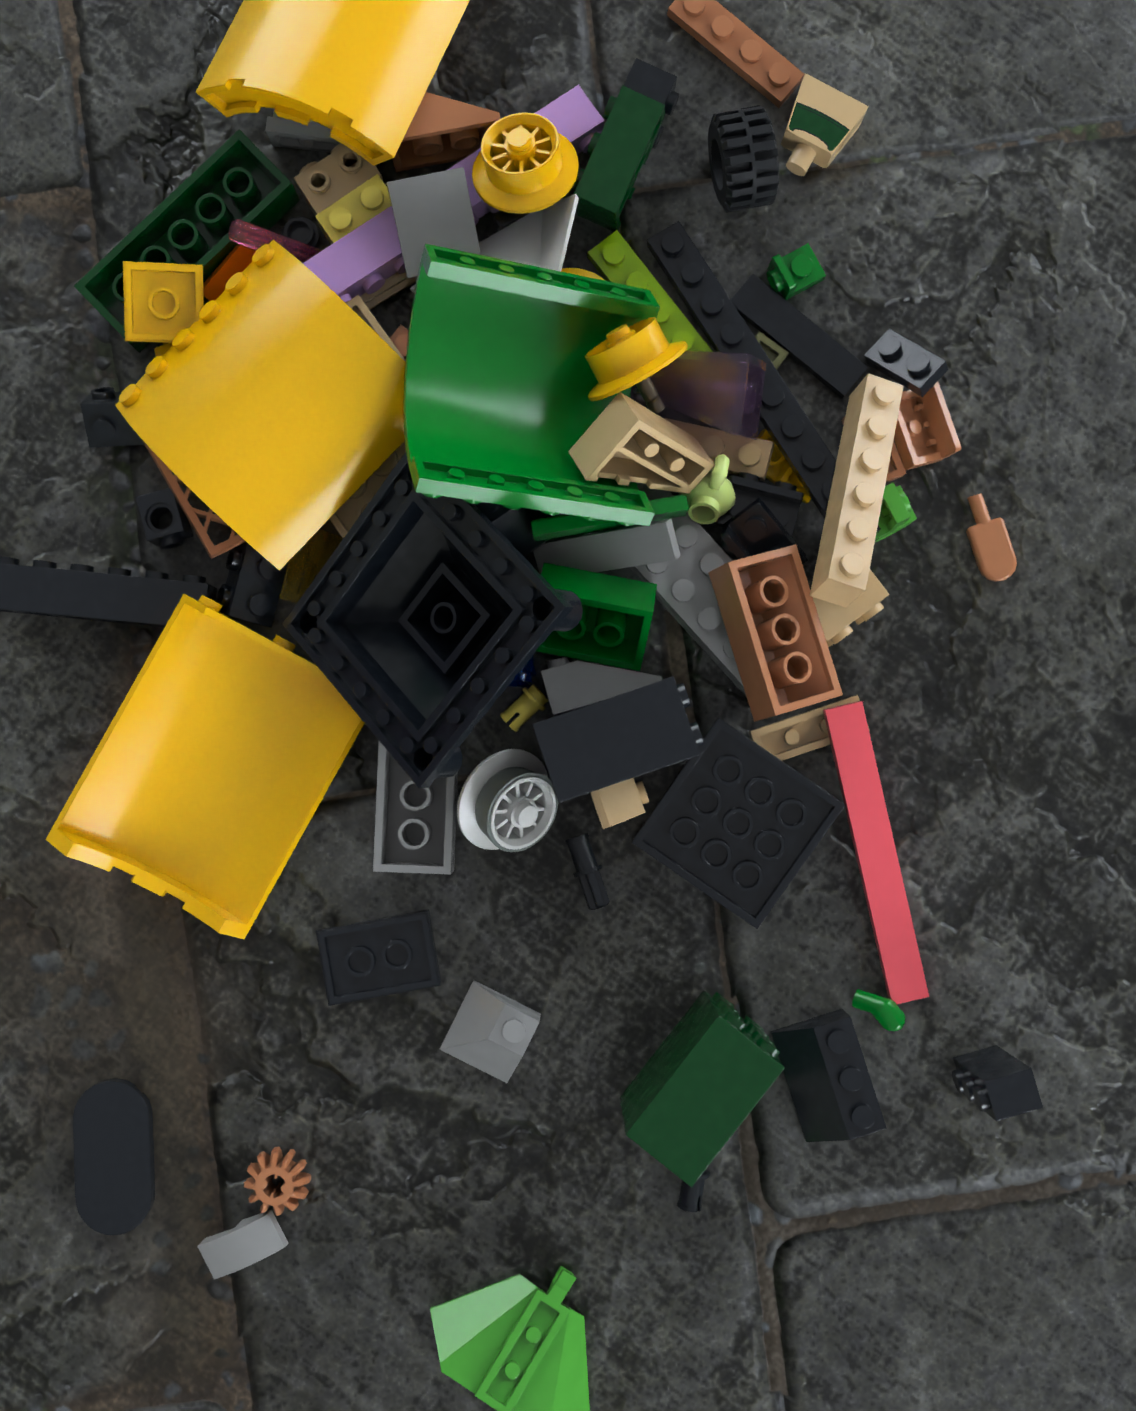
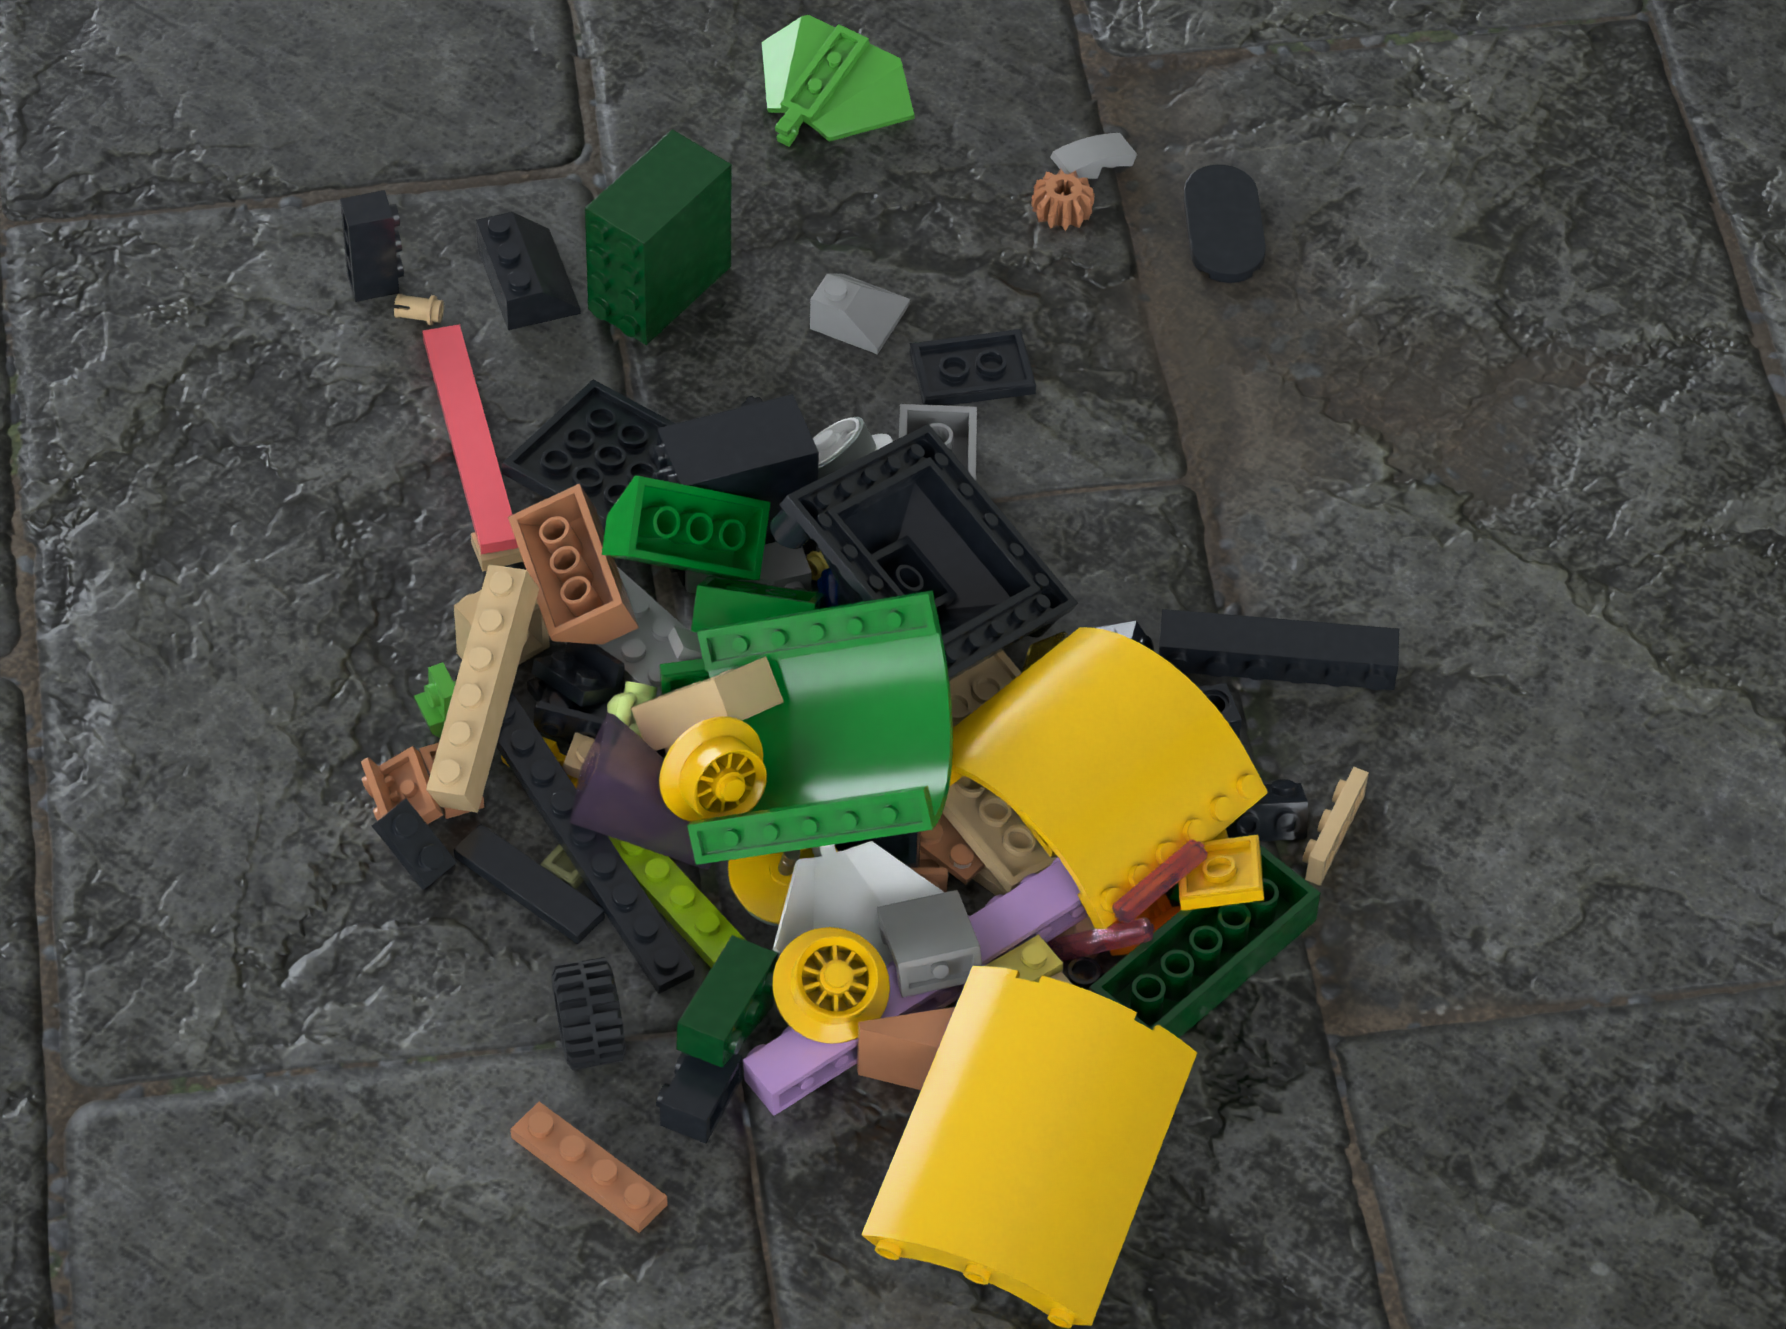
camera: 175 degrees right, 35 degrees down
(59, 394) = (1334, 825): none -> tan plate
(210, 767) = (1146, 495): yellow panel -> none
(218, 277) = (1159, 881): none -> clear pink axle
(665, 646) = (688, 529): none -> green slope
(794, 272) = (530, 940): green bracket -> none
(820, 125) = (495, 1073): tan torso -> none
(882, 1008) = (468, 318): green arm -> none
(933, 1027) = (420, 308): none -> tan pin
(990, 543) = (329, 699): nougat piece -> none

